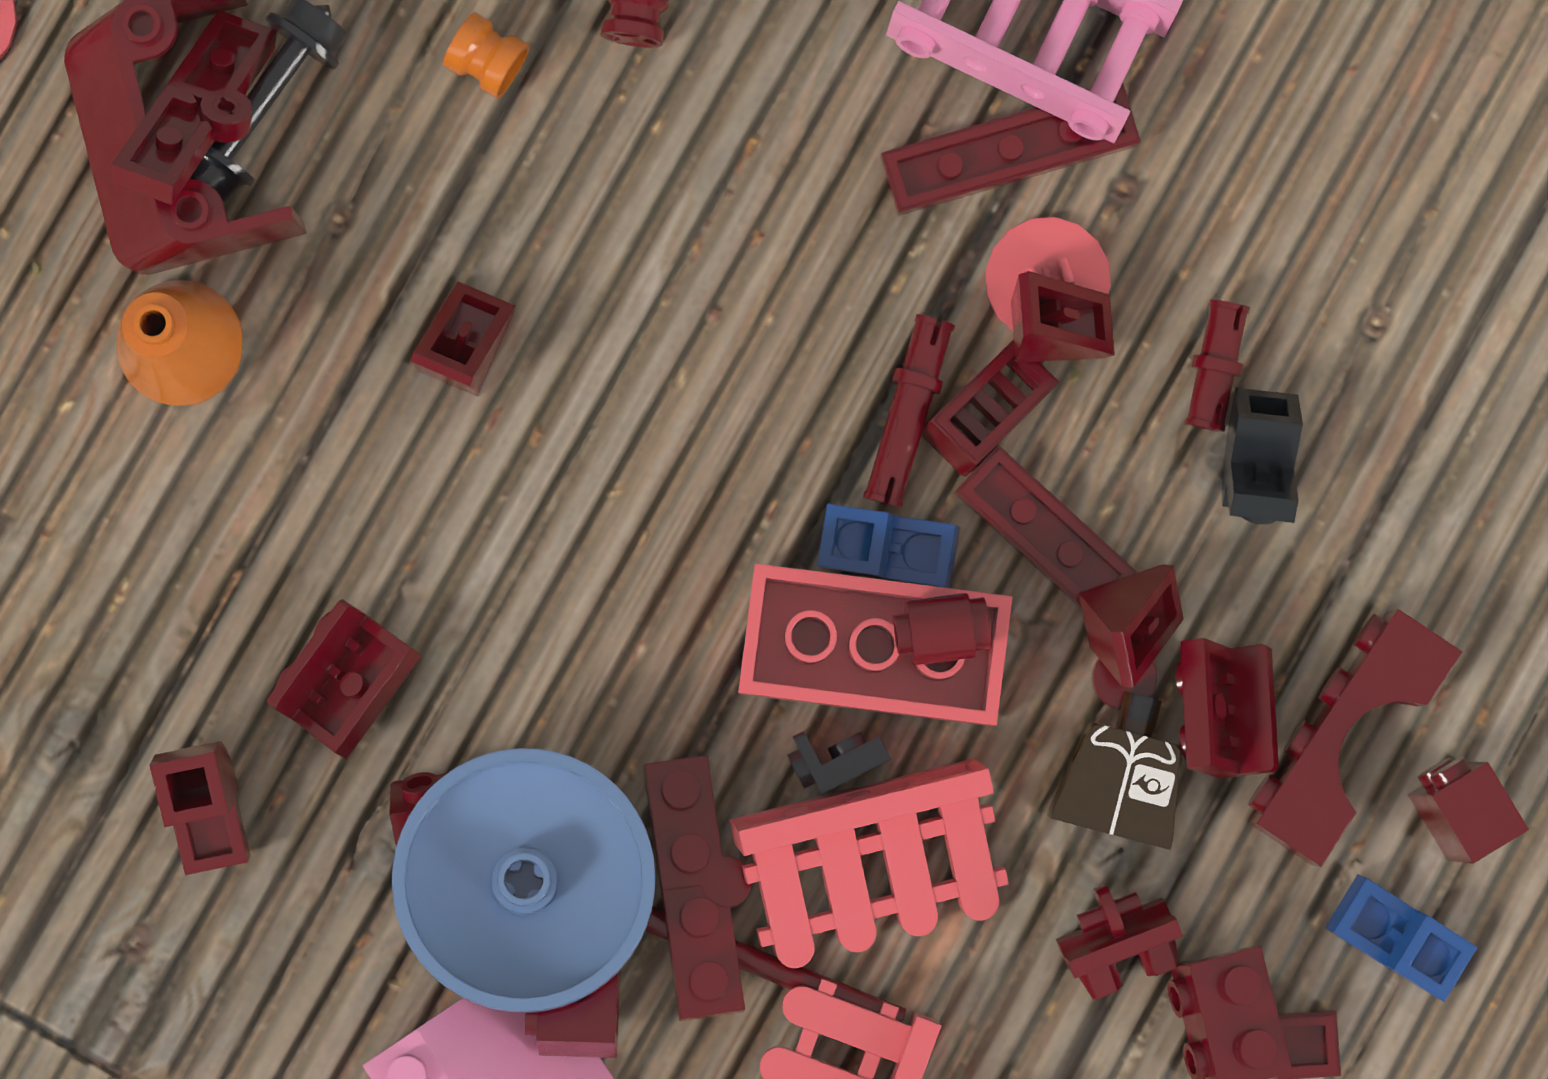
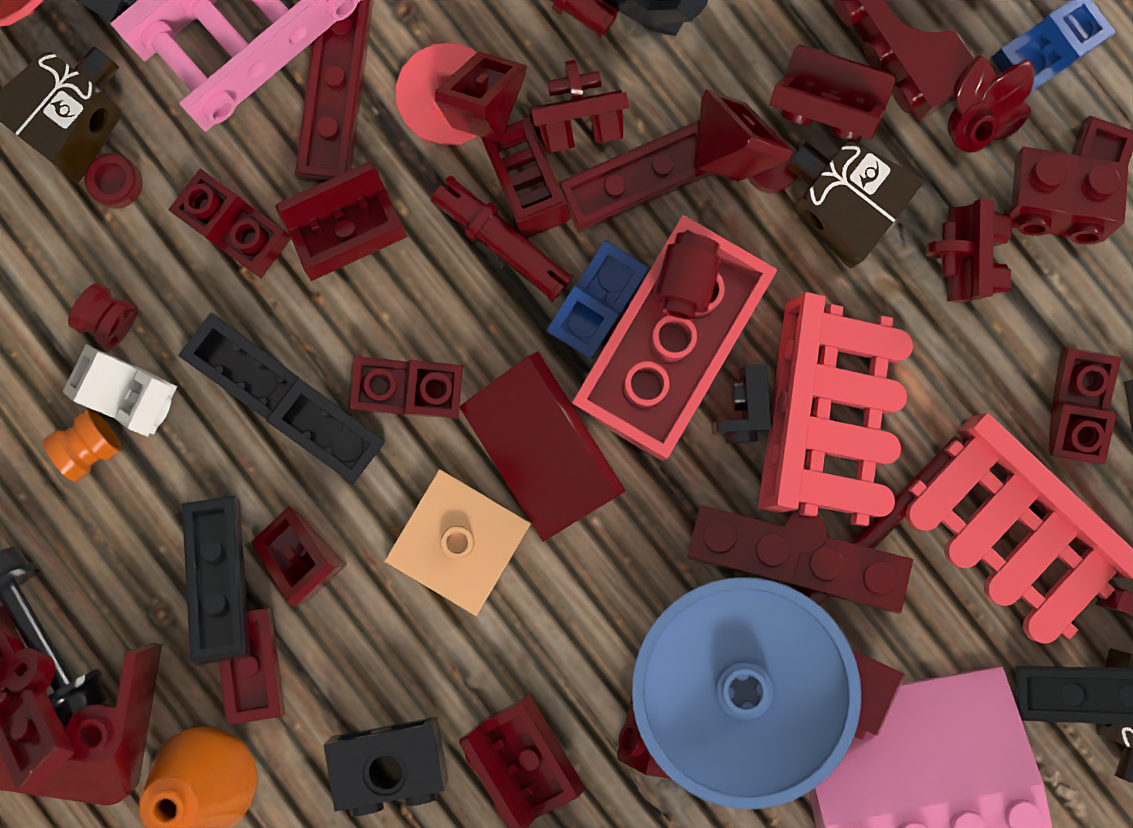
camera: 70 degrees left, 0 degrees up
(271, 495) = (353, 773): none -> black brick
(325, 339) = (254, 683): none -> dark red plate
(402, 263) = (215, 580): none -> black tile
(553, 507) = (458, 542): none -> light nougat plate
(562, 71) = (120, 390): none -> white brick
(629, 246) = (281, 398): none -> black slope
(694, 552) = (541, 447): none -> dark red tile
(698, 376) = (405, 387): none -> dark red slope
(797, 105) = (230, 223): none -> dark red slope
(851, 227) = (341, 220): none -> dark red bracket
(1072, 412) = (603, 108): none -> dark red hips
(1292, 892) = (989, 104): none -> dark red plate

